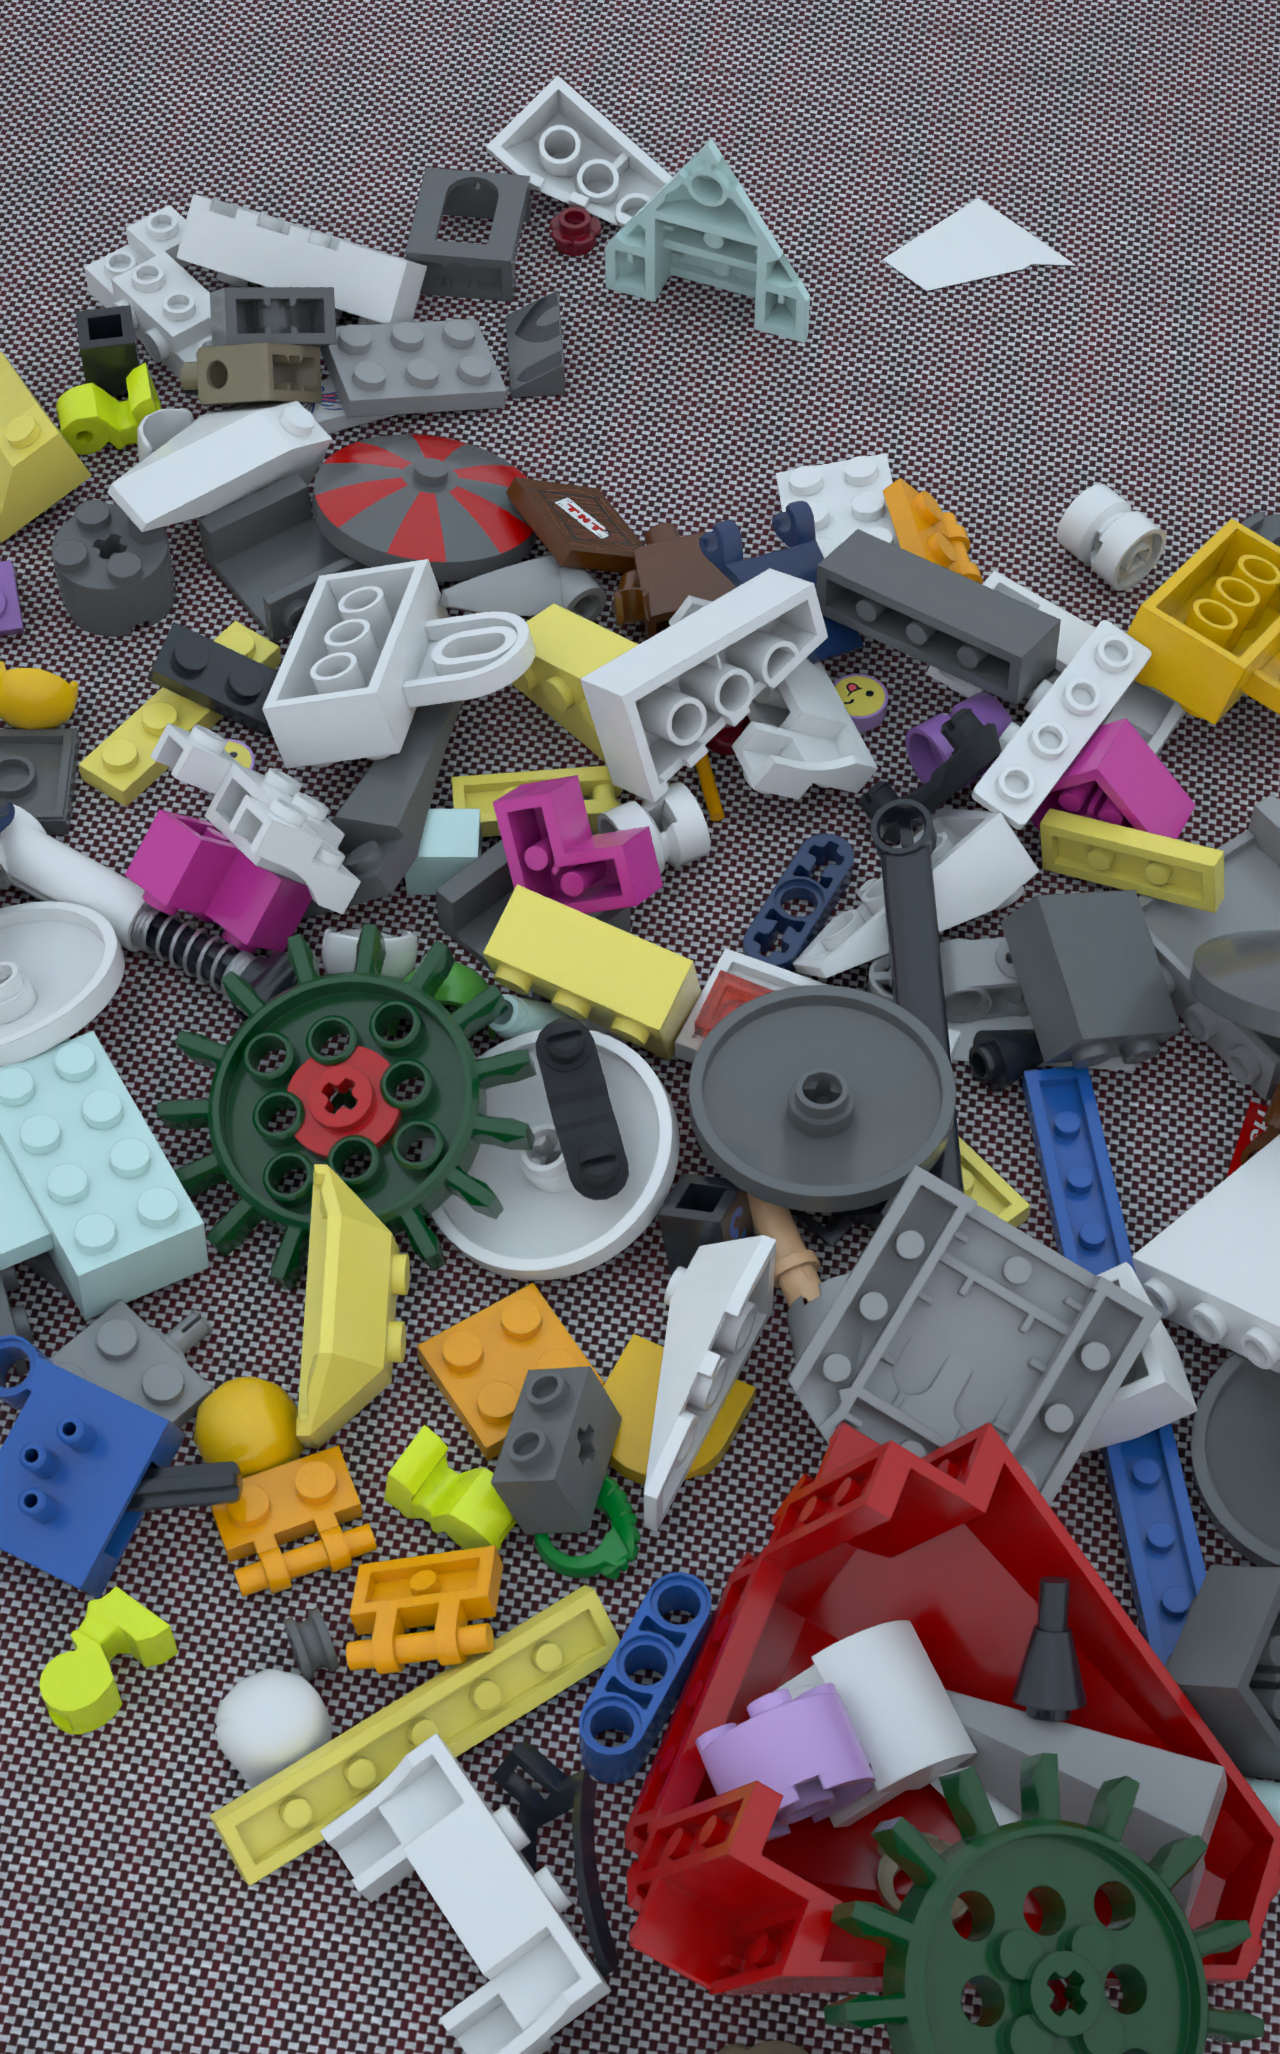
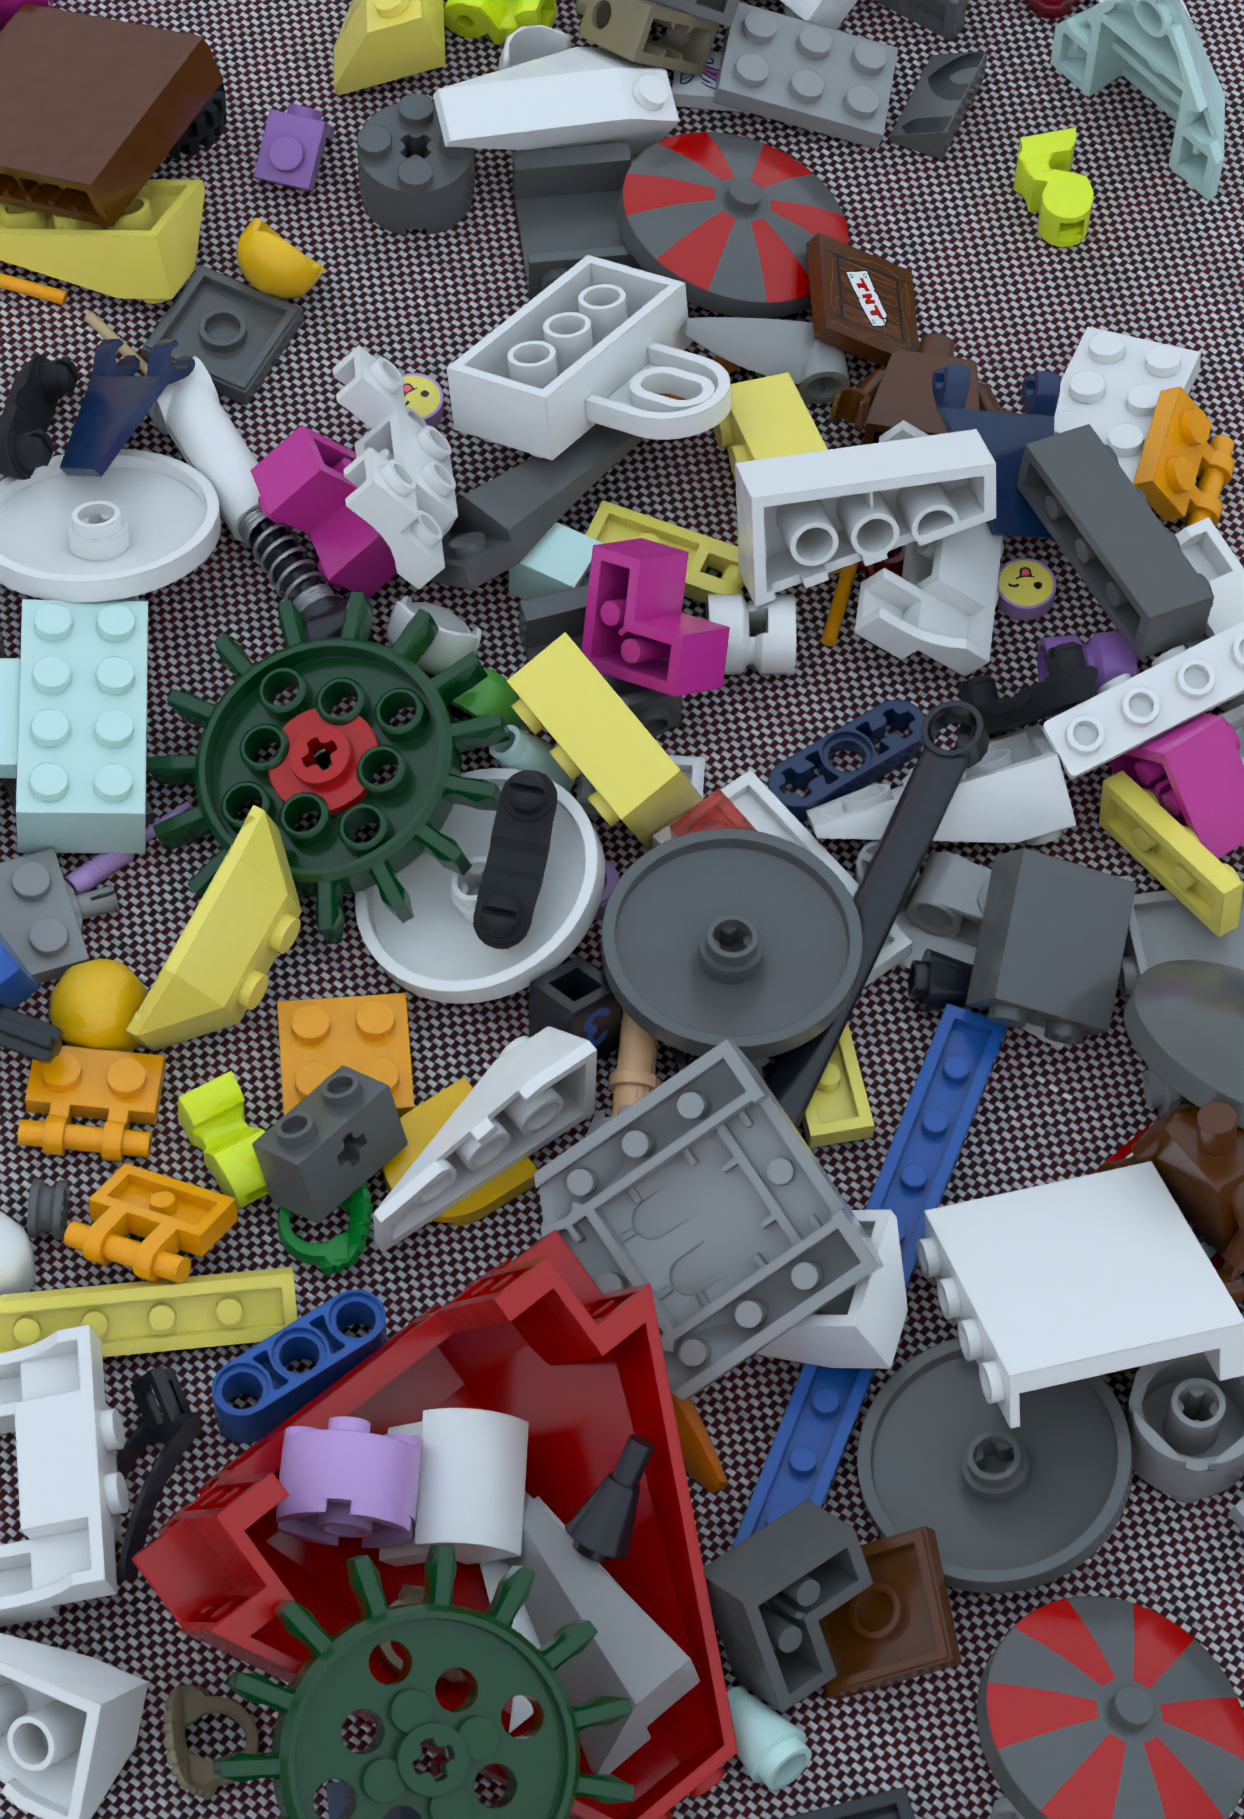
camera: 25 degrees right, 5 degrees up
(123, 762) = (407, 328): light yellow plate -> none
(174, 1295) = (106, 864): none -> lavender piece
(214, 677) = (438, 306): black hinge -> none
(687, 381) = (1052, 189): none -> neon yellow leg

